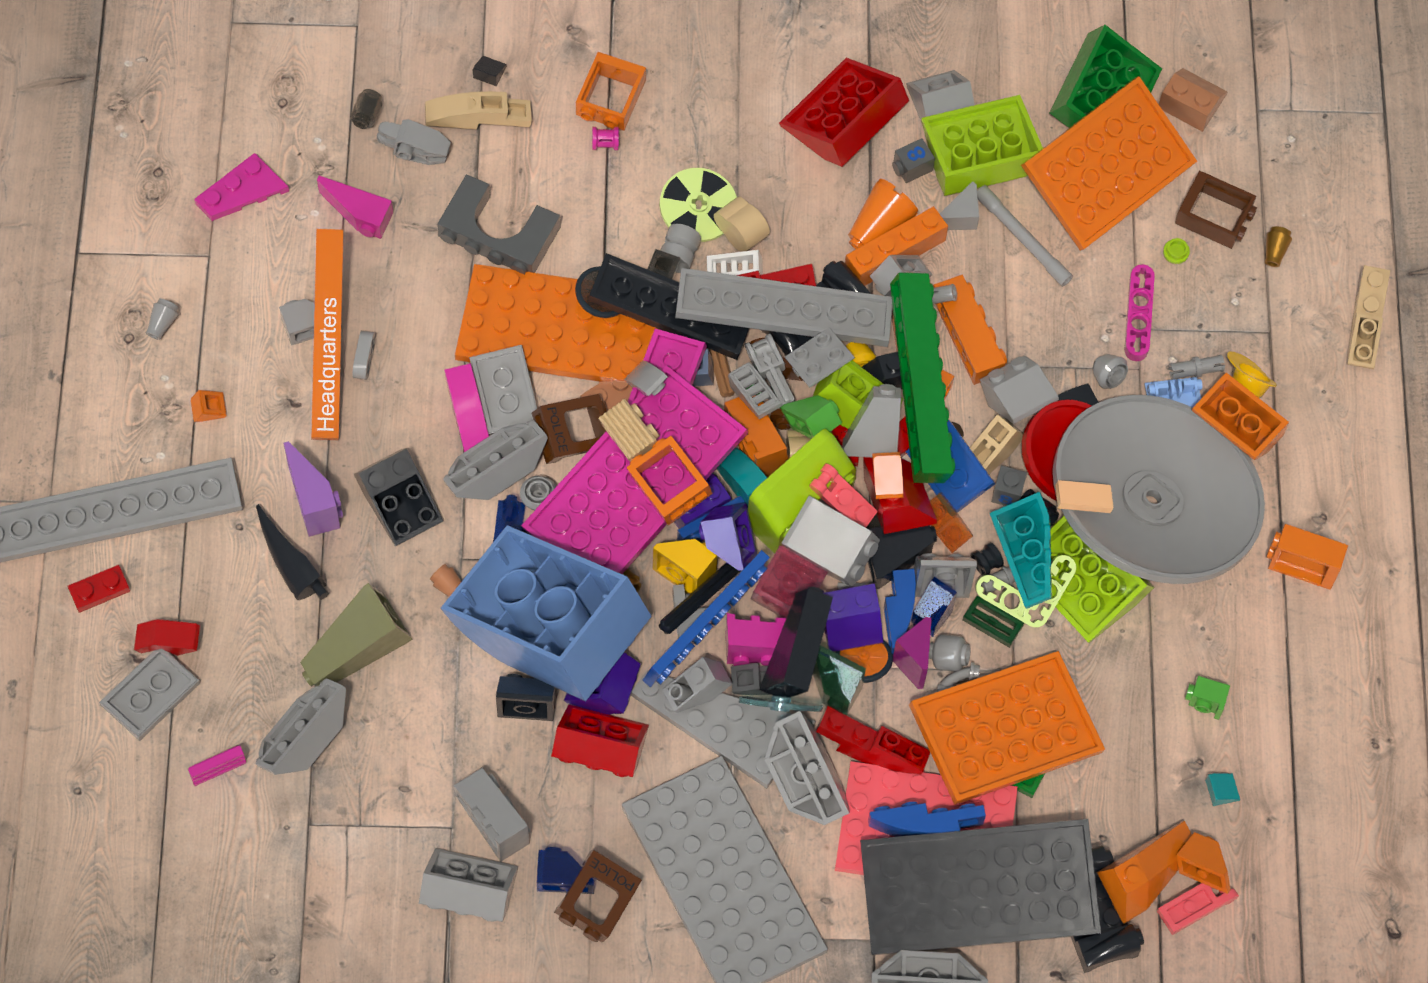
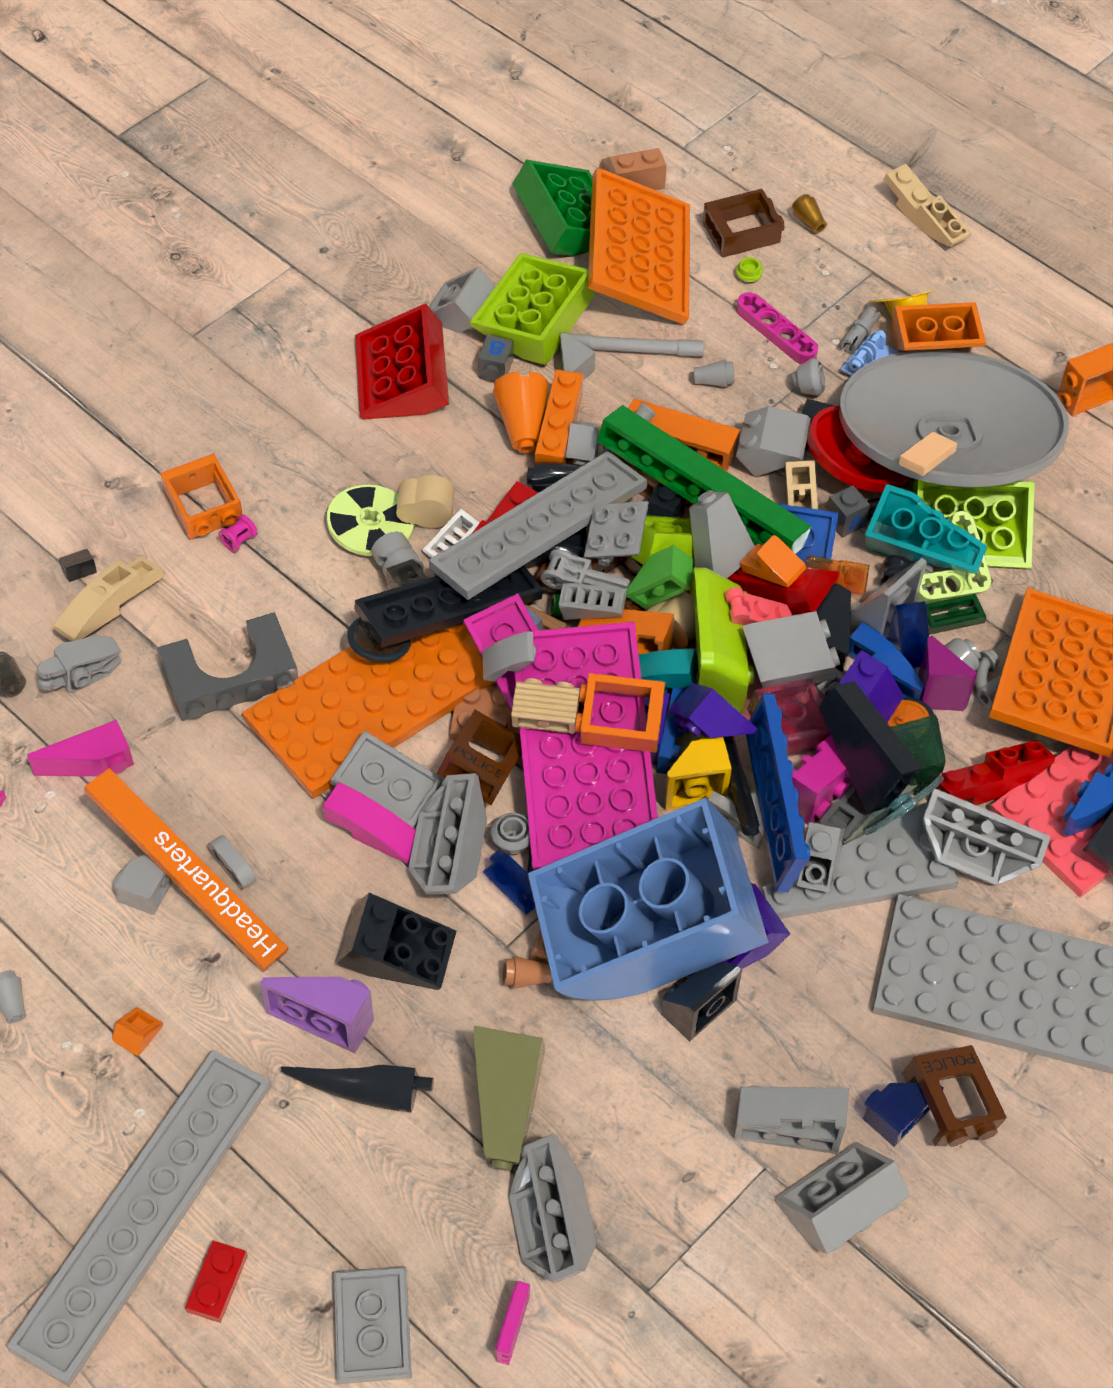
camera: 45 degrees left, 10 degrees down
(168, 635) = (336, 1253): red slope -> none
(599, 741) = (798, 975): red slope -> none
(1051, 308) = (717, 373): none -> light grey cone

